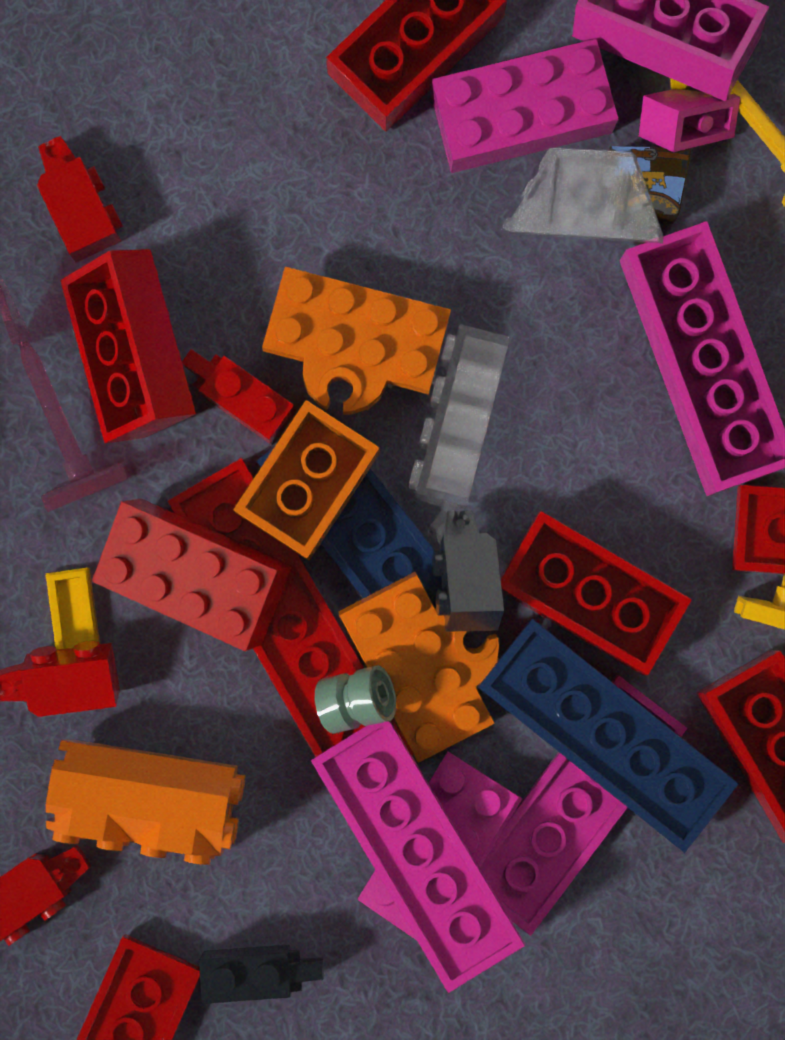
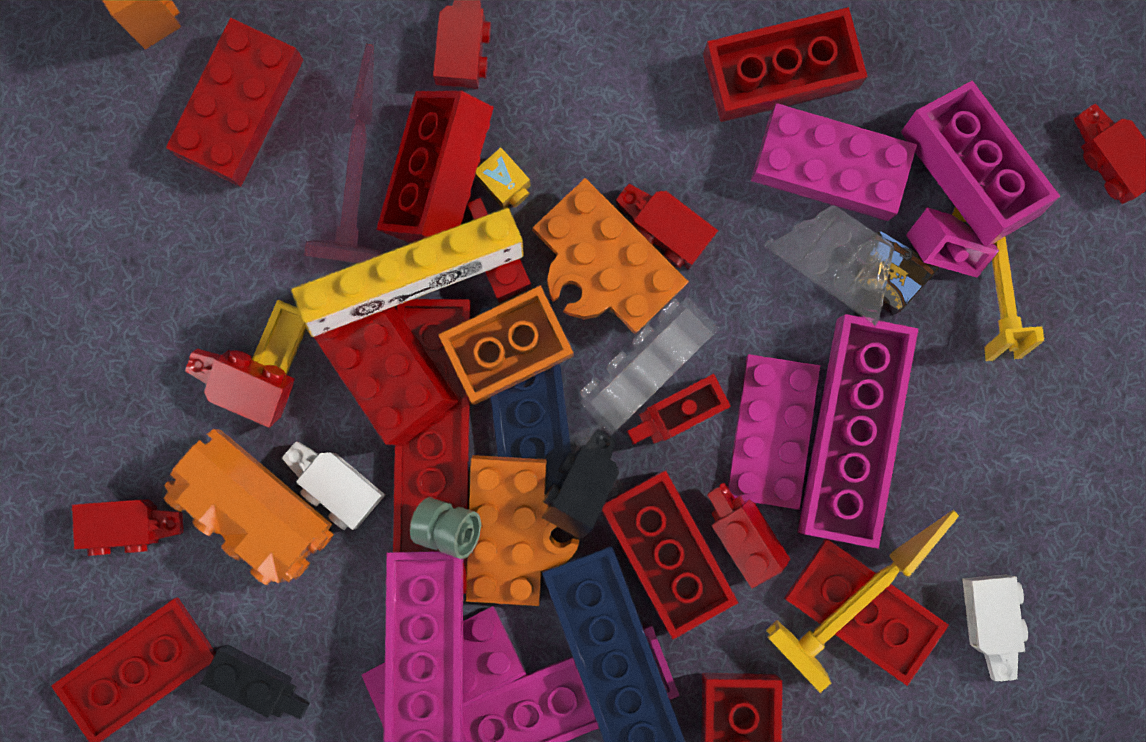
camera: 30 degrees right, 0 degrees up
(166, 464) = (408, 272): none -> yellow brick
(203, 317) = (503, 179): none -> yellow brick
(215, 724) = (334, 484): none -> white hinge
(395, 265) = (667, 224): none -> red hinge
(520, 444) = (681, 411): none -> red hinge
(623, 410) = (773, 431): none -> dark pink plate
(660, 530) = (747, 536): none -> red hinge

